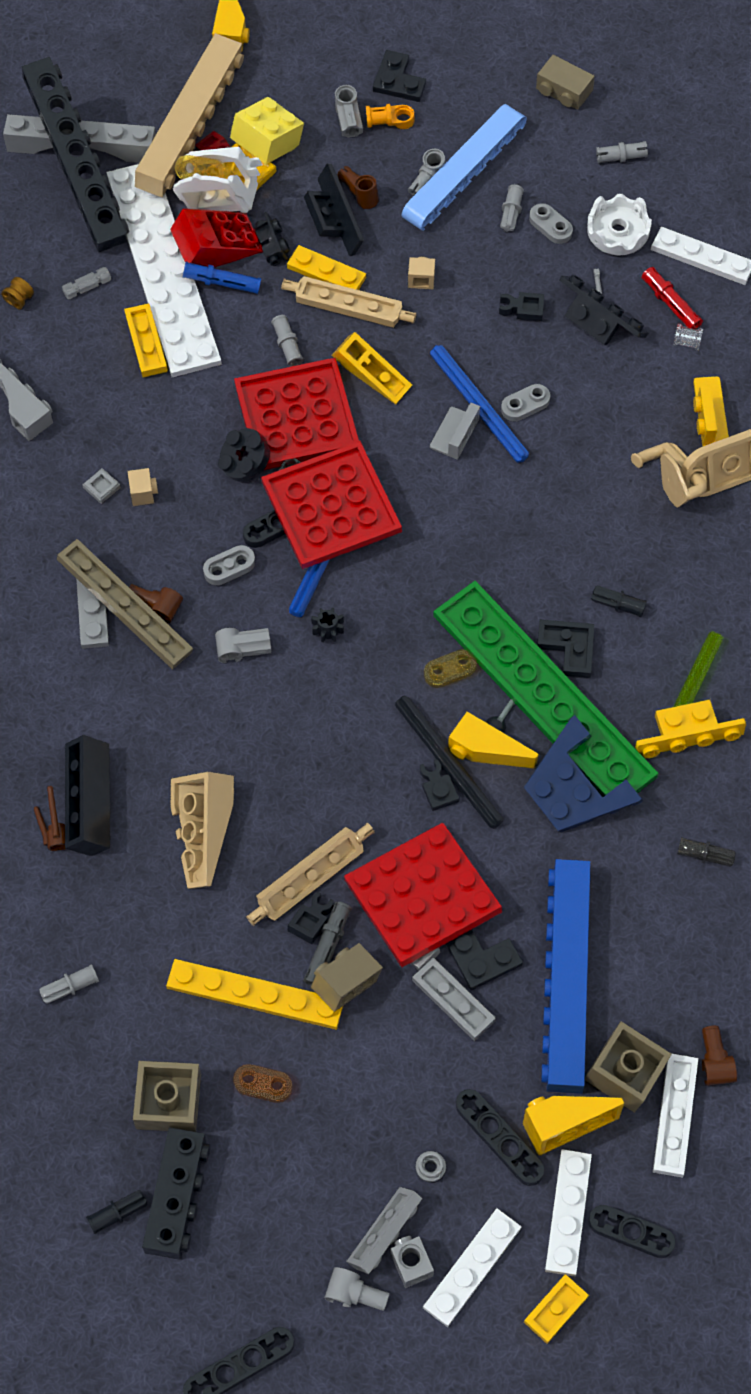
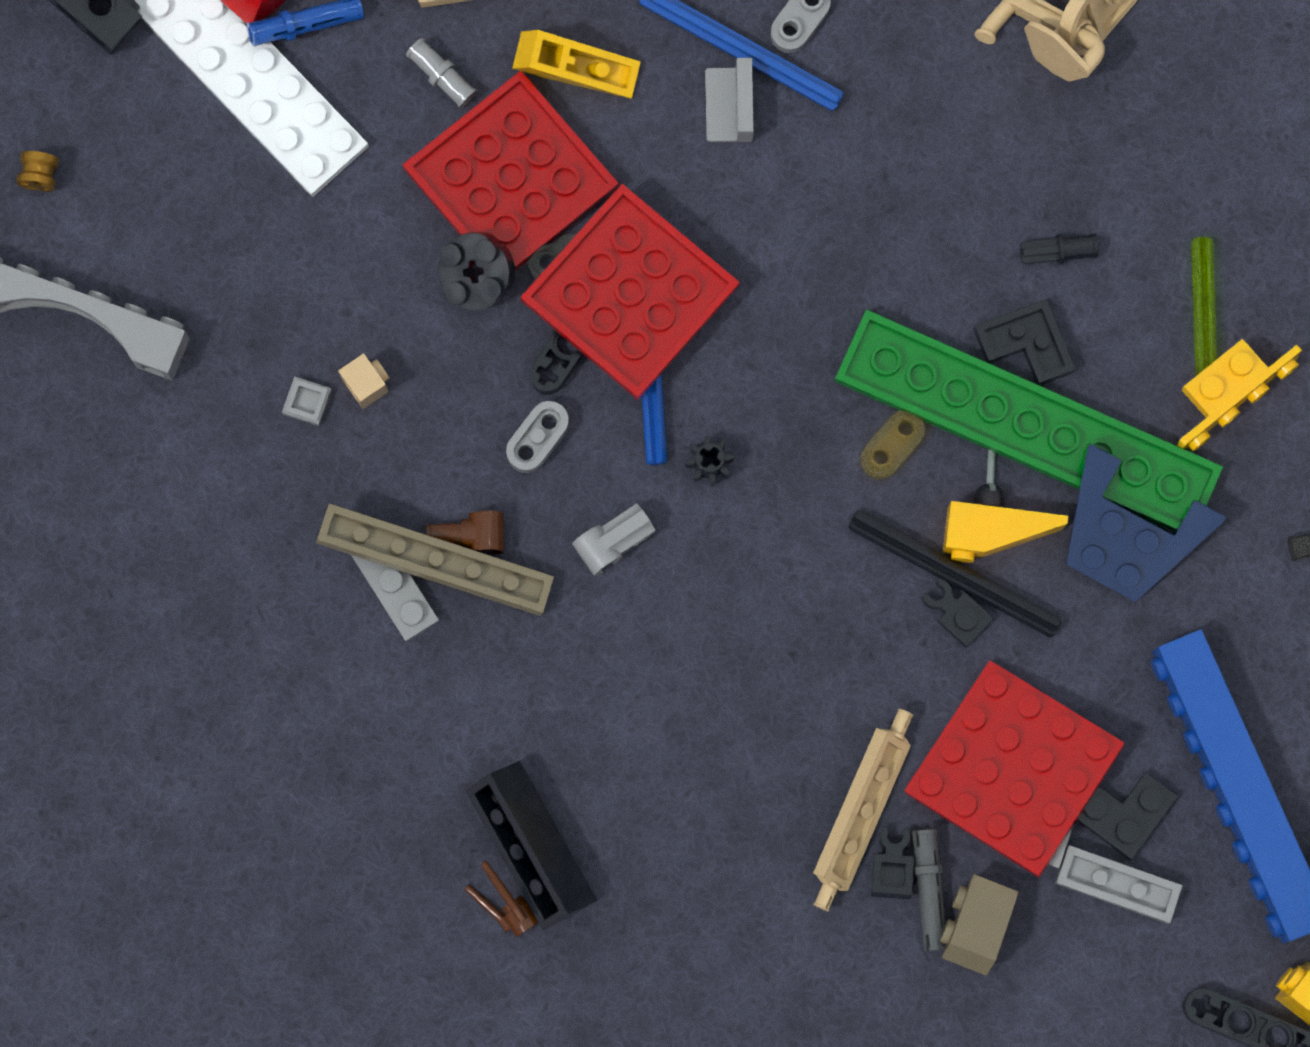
camera: 30 degrees left, 15 degrees up
(86, 283) = (121, 110): light grey axle -> none
(145, 340) = (250, 160): yellow plate -> none
(204, 811) = (691, 798): tan wedge -> none
(252, 993) = (867, 998): yellow plate -> none

